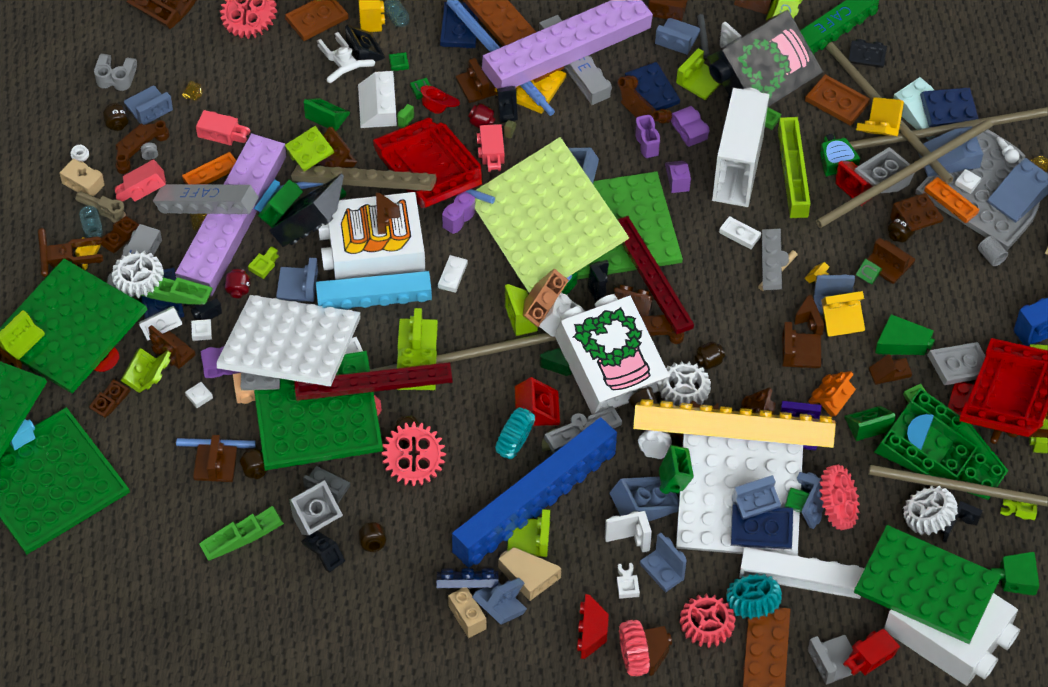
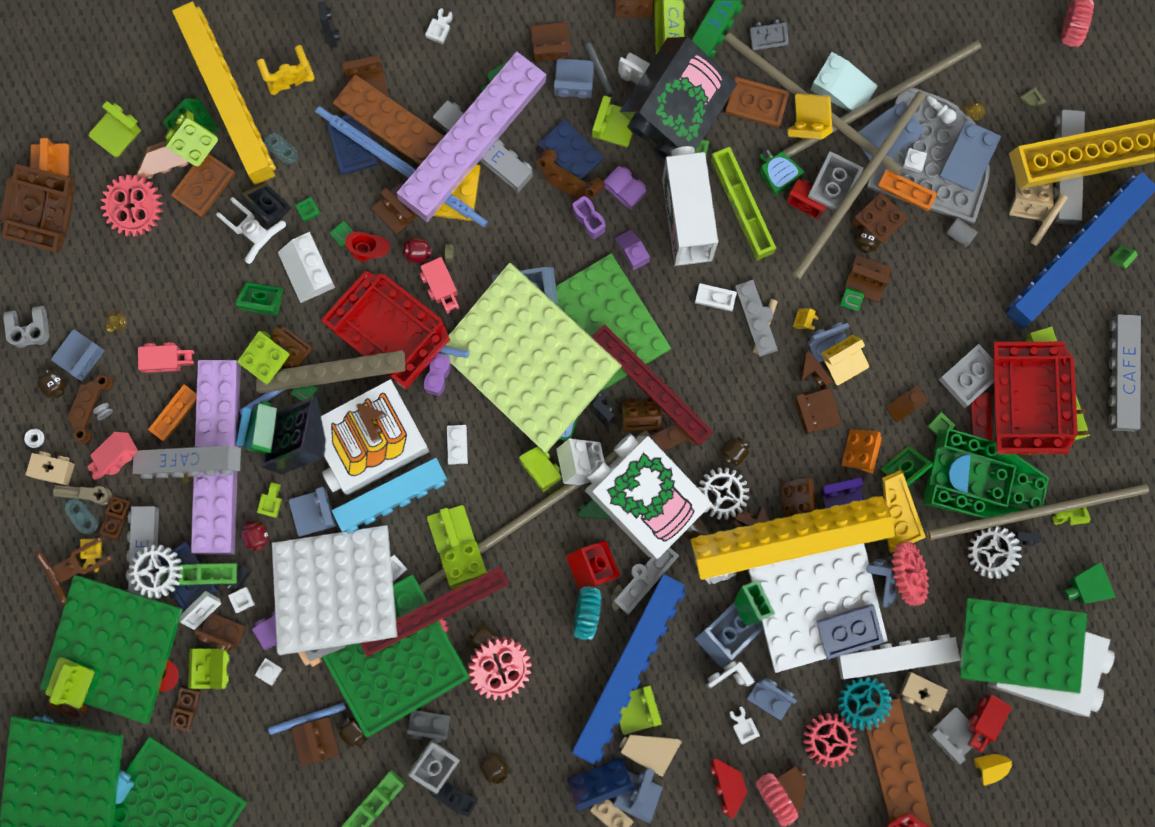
camera: 20 degrees left, 25 degrees up
(405, 116) = (340, 277): bright green plate -> none
(507, 104) = (438, 230): black plate -> none
(543, 296) = (559, 456): nougat slope -> none
(756, 497) = (838, 611): sand blue bracket -> none
(796, 499) = (873, 592): green tile -> none
(815, 609) = (934, 693): none -> tan brick
(849, 442) = (904, 514): none -> yellow wing
(904, 338) = (909, 363): green slope -> none
(948, 106) = (870, 76): dark blue plate -> none

